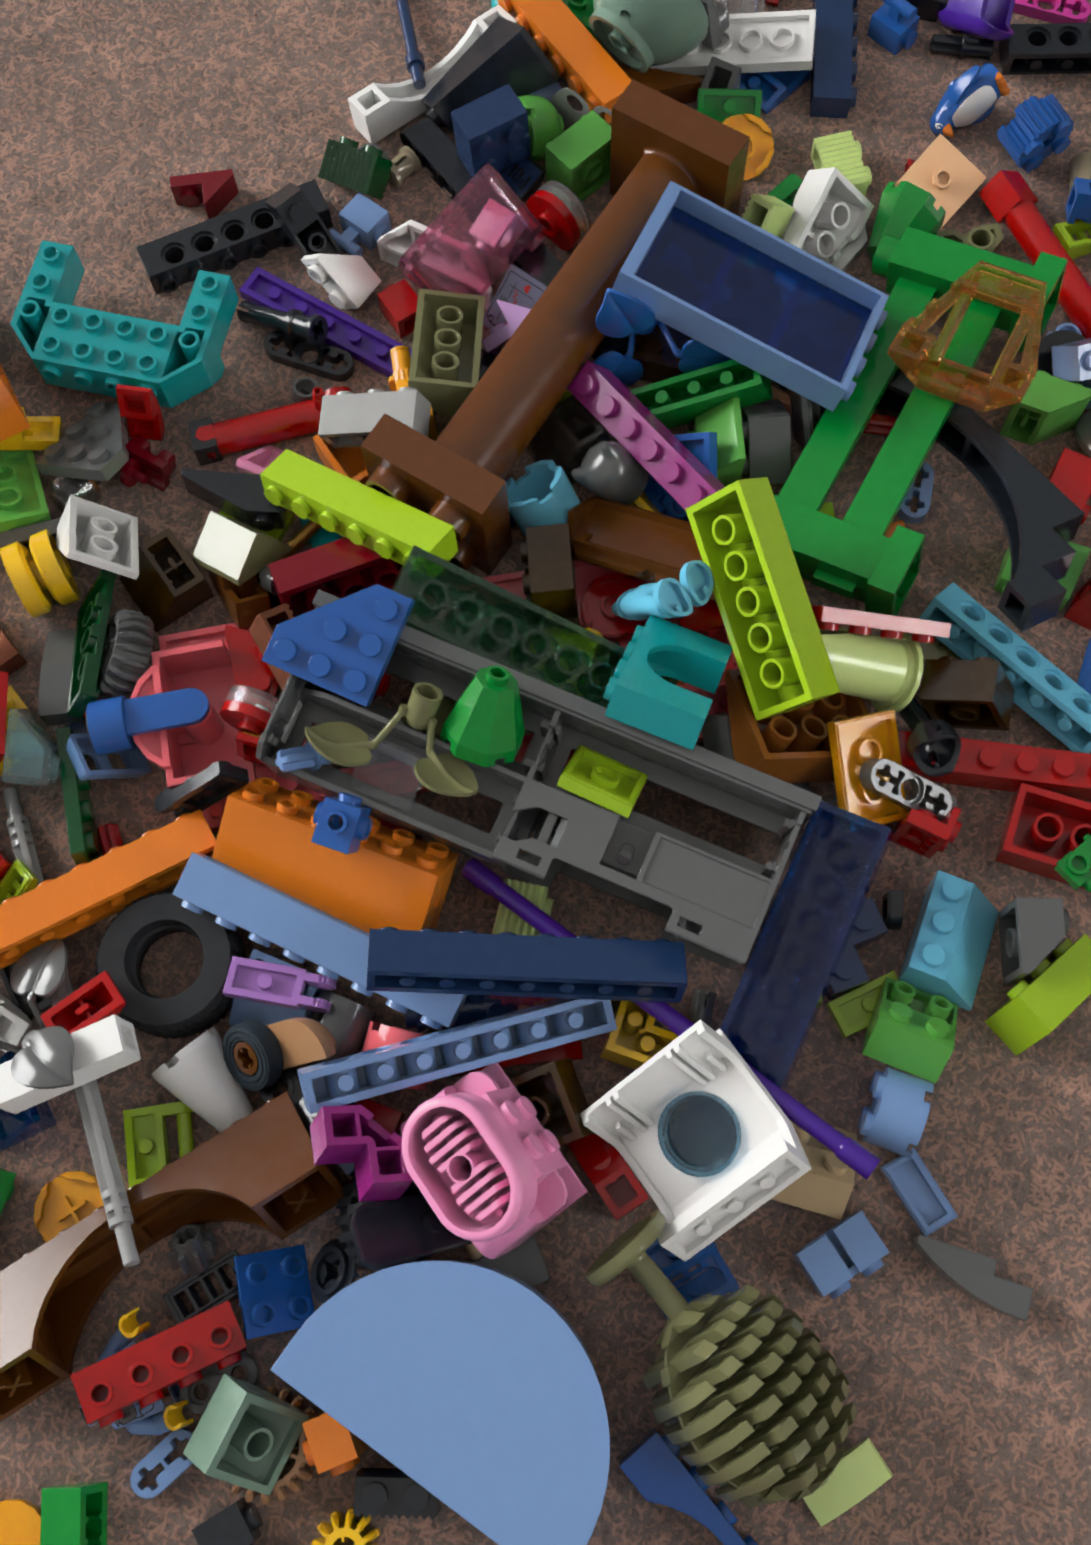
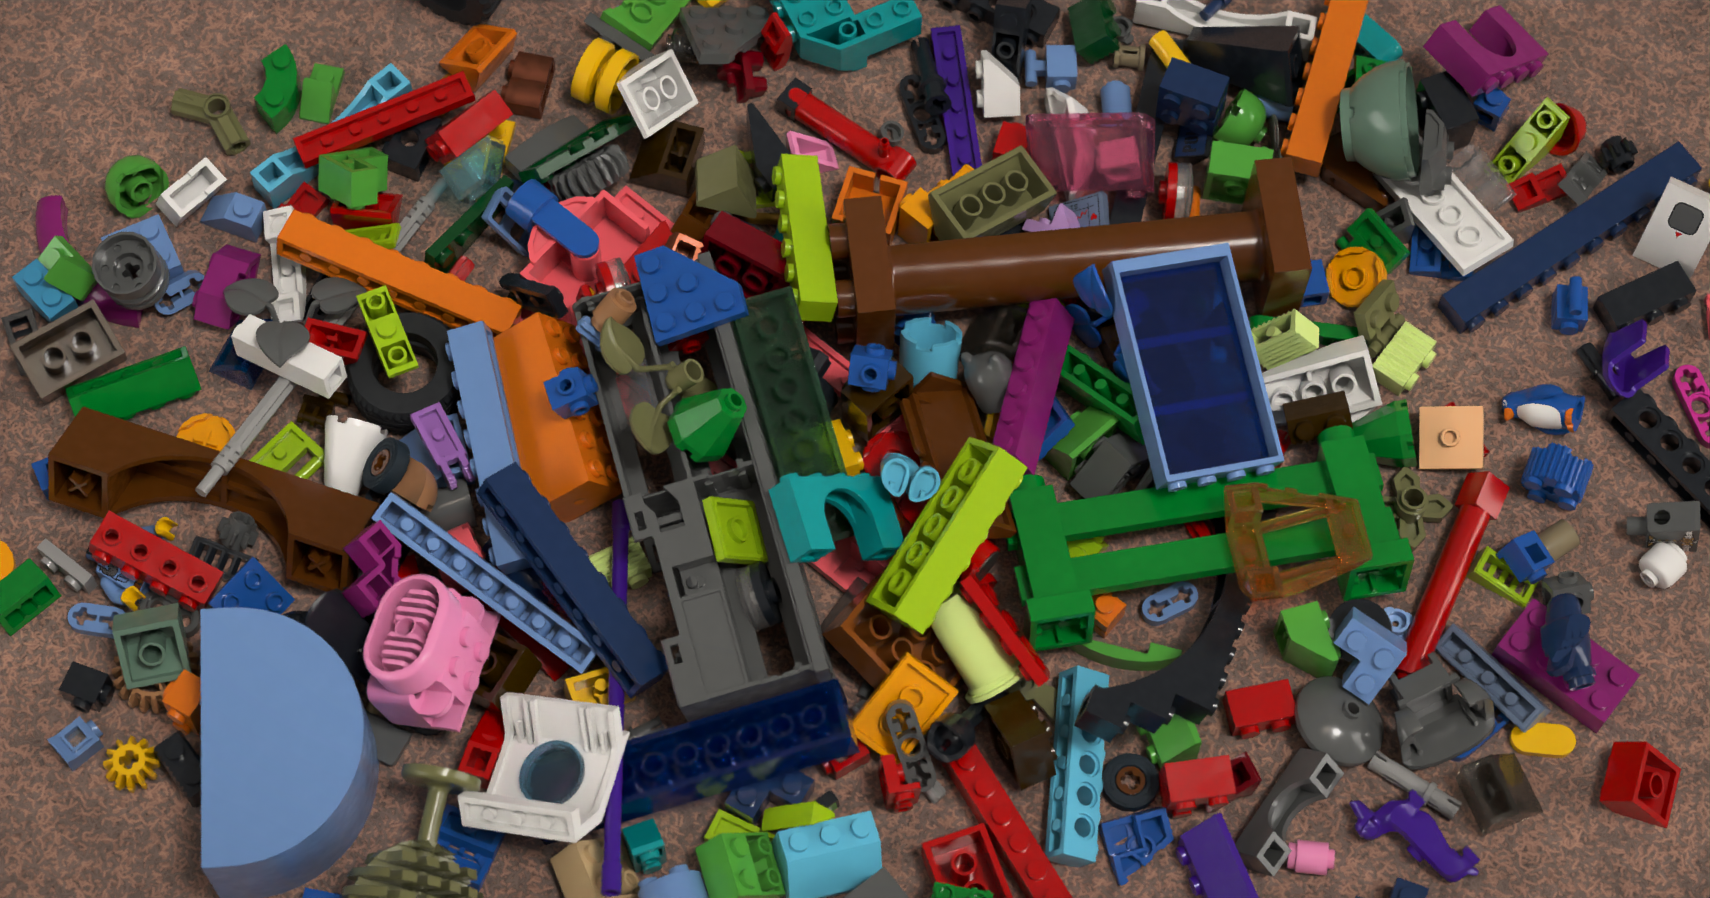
camera: 45 degrees right, 5 degrees down
(66, 1461) = (55, 560): none -> light grey plate
(124, 951) = (387, 332): none -> lime slope
(137, 1076) = (318, 408): none -> dark brown arm
(294, 714) = (617, 304): none -> medium nougat brick
(350, 417) = (902, 208): light grey brick -> none
(429, 202) = (1115, 98): none -> medium blue brick
(431, 129) = (1166, 48): none -> yellow cylinder
(537, 546) = (871, 367): none -> blue brick
(676, 809) = (759, 595): none -> piece
(795, 152) = (1378, 314): none -> olive plate
(822, 1094) = (645, 846): none -> teal slope
(854, 247) = (1313, 415): none -> dark brown brick
(897, 942) = (795, 815): none -> lime slope
(956, 541) = (1127, 659): none -> bright green slope
(1073, 635) = (1120, 795): none -> black bush

